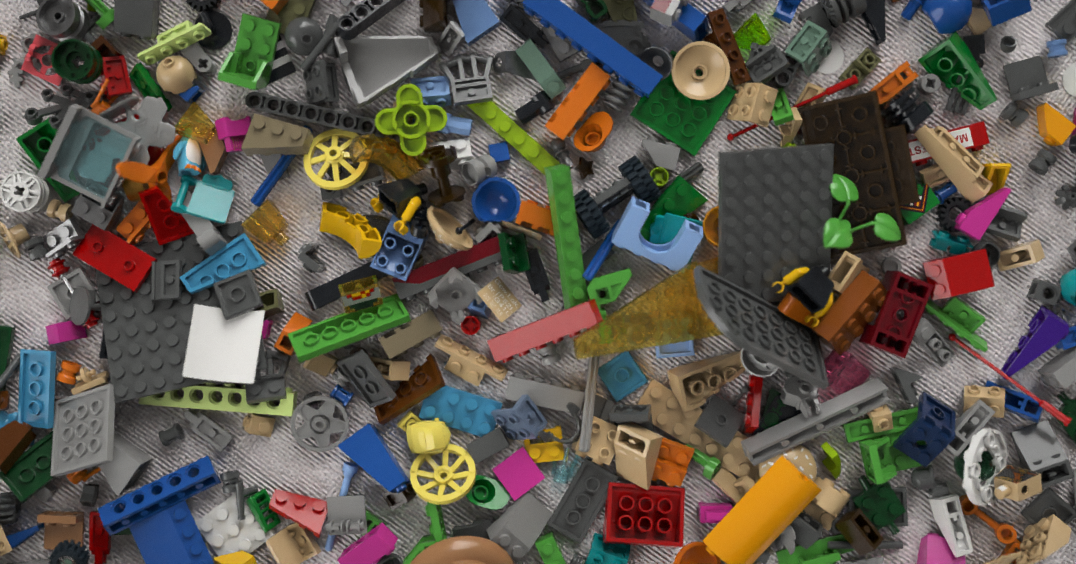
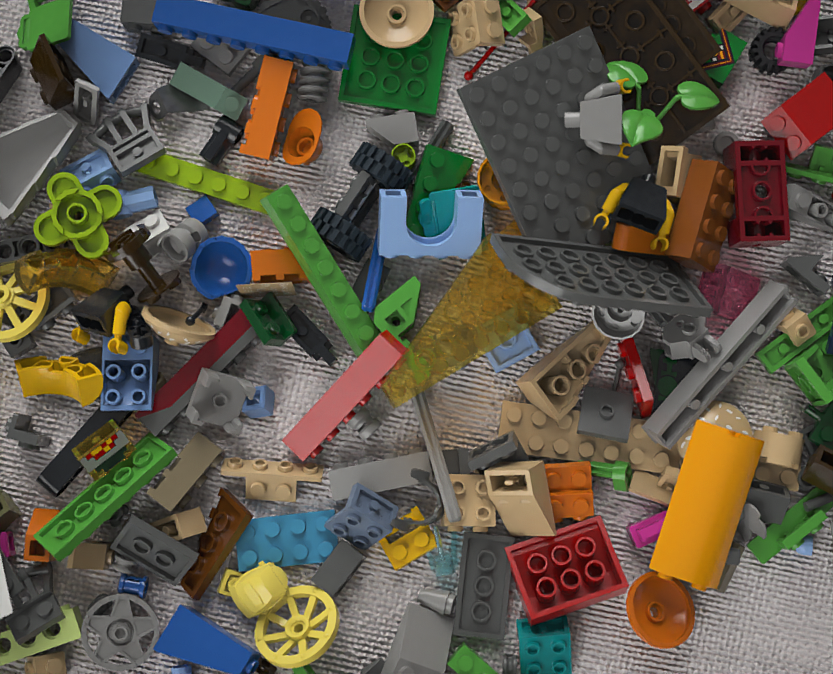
camera: 20 degrees left, 5 degrees down
(470, 325) = (251, 430): red wheel -> none
(488, 493) = (363, 627): green piece -> none
(499, 299) = (275, 383): tan sticker -> none
(518, 473) = (390, 586): dark pink piece -> none
(546, 496) = (437, 600): none -> light grey cone
(558, 146) = (270, 174): dark grey axle -> none
(584, 168) = (311, 185): dark brown piece -> none
(621, 375) = (464, 412): dark azure tile -> none
(650, 52) = (332, 12): dark grey piece -> none
(812, 216) = (601, 119): none -> light grey torso
(832, 461) = (764, 404): lime slope -> none
(943, 239) = (772, 86): teal hinge -> none
(945, 192) = (748, 30): blue pin -> none

